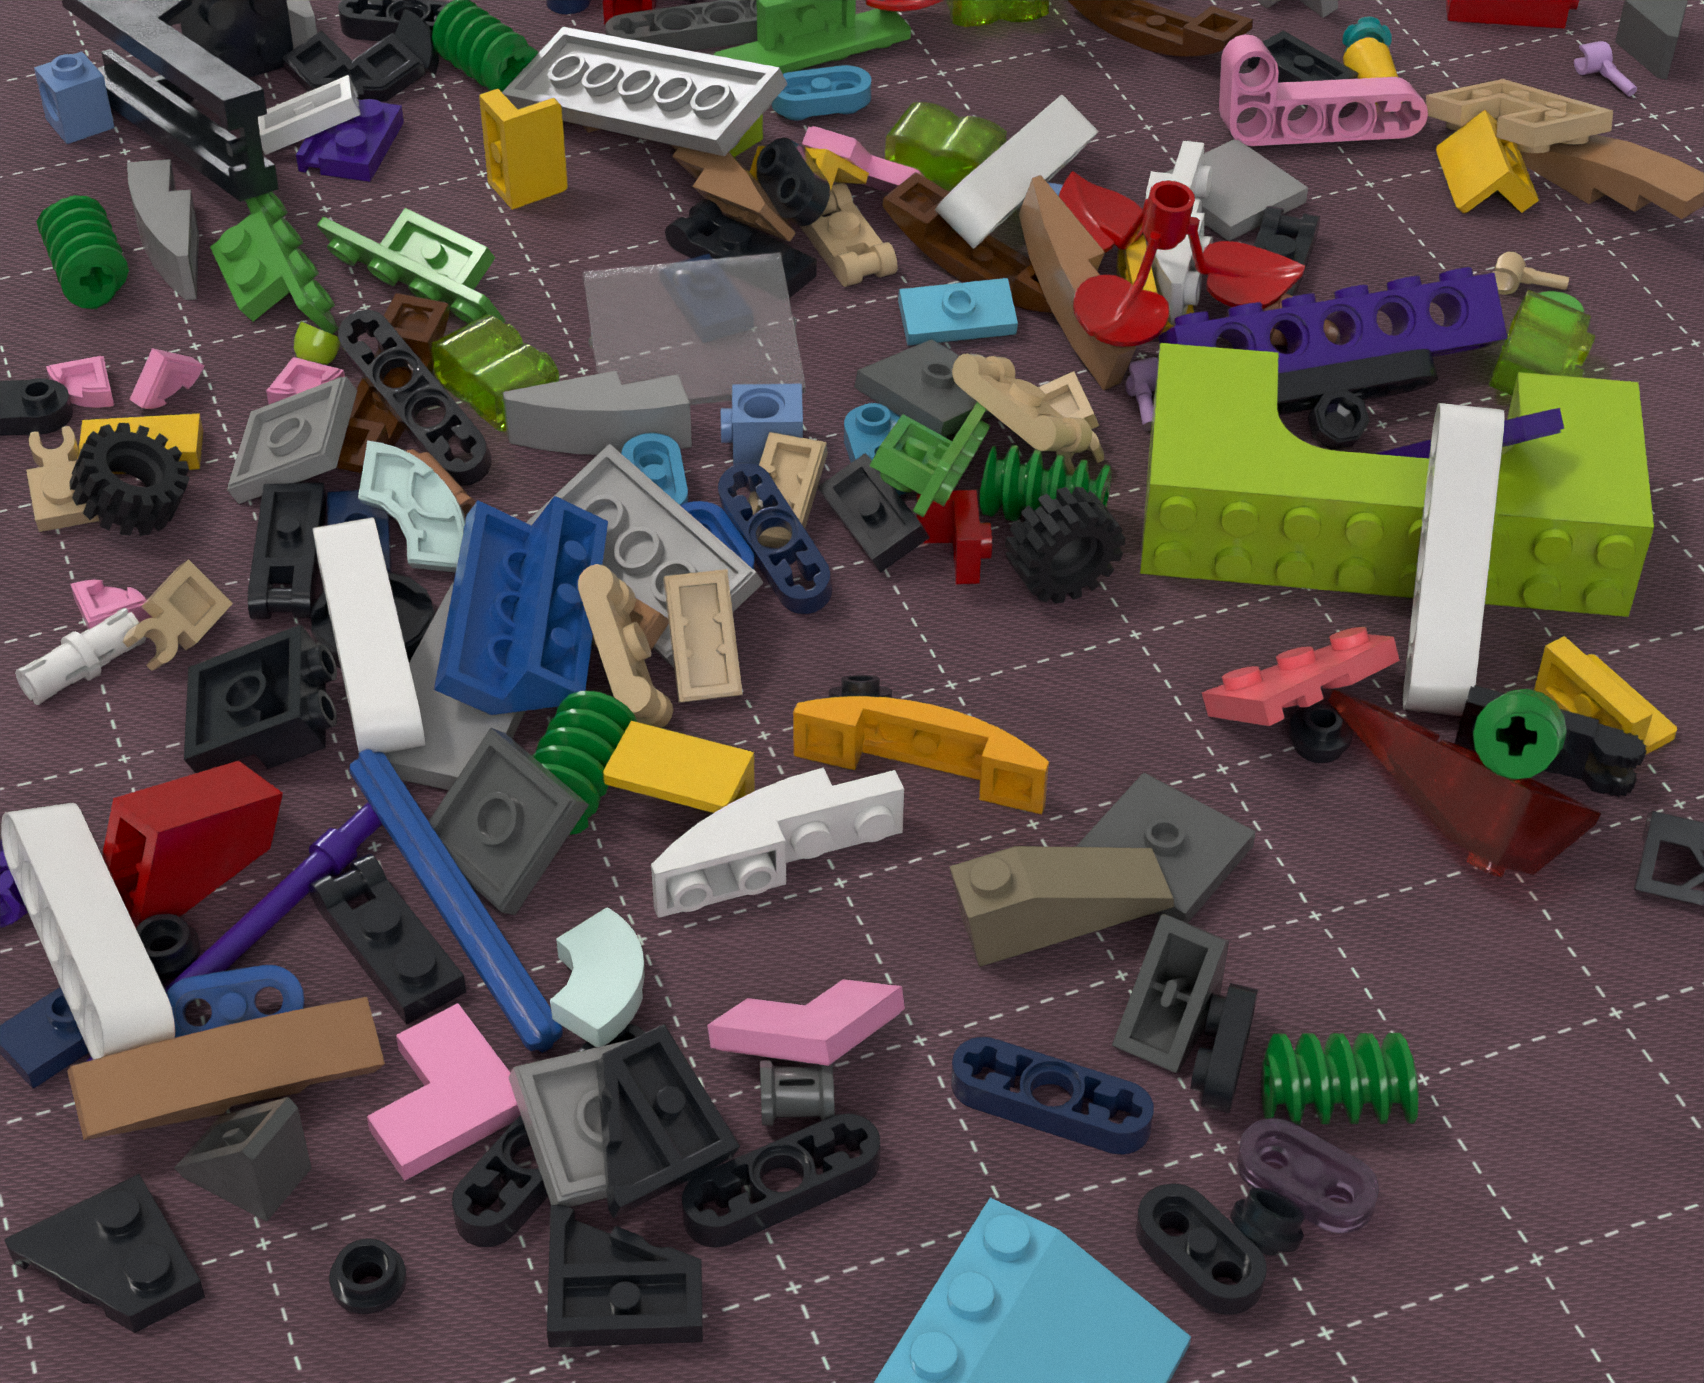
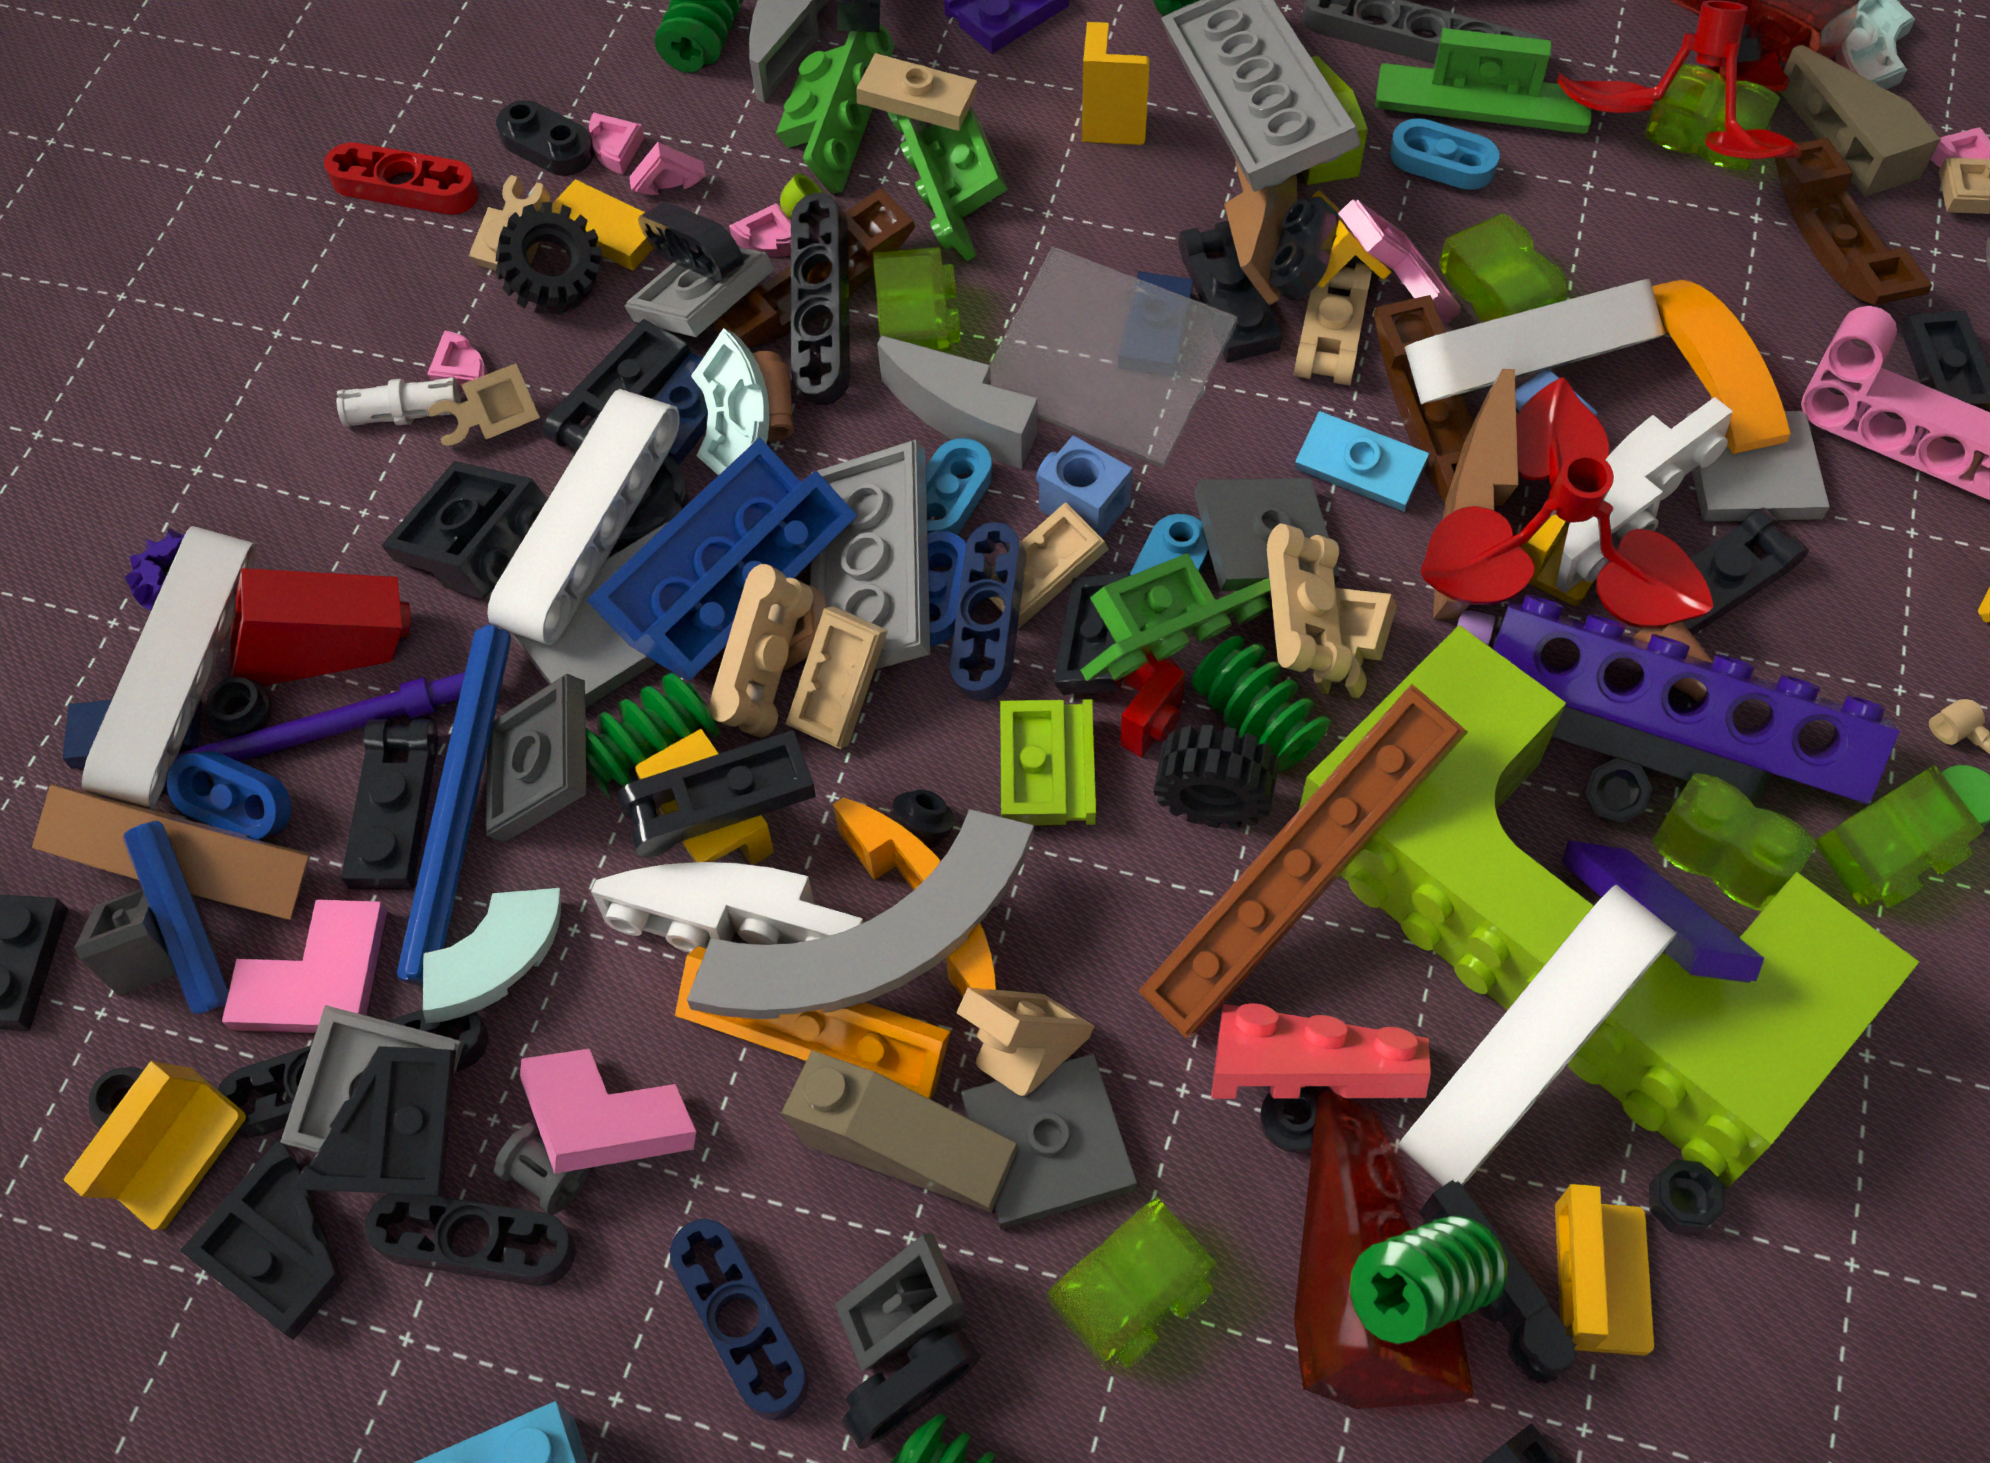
camera: 40 degrees right, 15 degrees up
(268, 1082) = (176, 917): none -> blue axle
(279, 383) = (691, 241): none -> black beam
(360, 213) = (916, 91): none -> tan plate
(449, 1274) = (157, 1143): none -> yellow panel
(700, 743) = (716, 792): none -> black plate
(893, 874) = (859, 1034): none -> light orange plate
(919, 614) = (1047, 762): none -> lime plate
(930, 785) = (876, 954): none -> light grey tile
(1088, 781) = (1022, 1035): none -> tan slope
(1159, 125) = (1725, 363): none -> light orange slope
(1192, 548) = (1302, 861): none -> dark orange tile
(1318, 890) = (1133, 1285): none -> clear neon green brick
(1418, 387) = (1724, 837): none -> clear neon green brick
(1613, 628) = (1686, 1197): none -> black tile

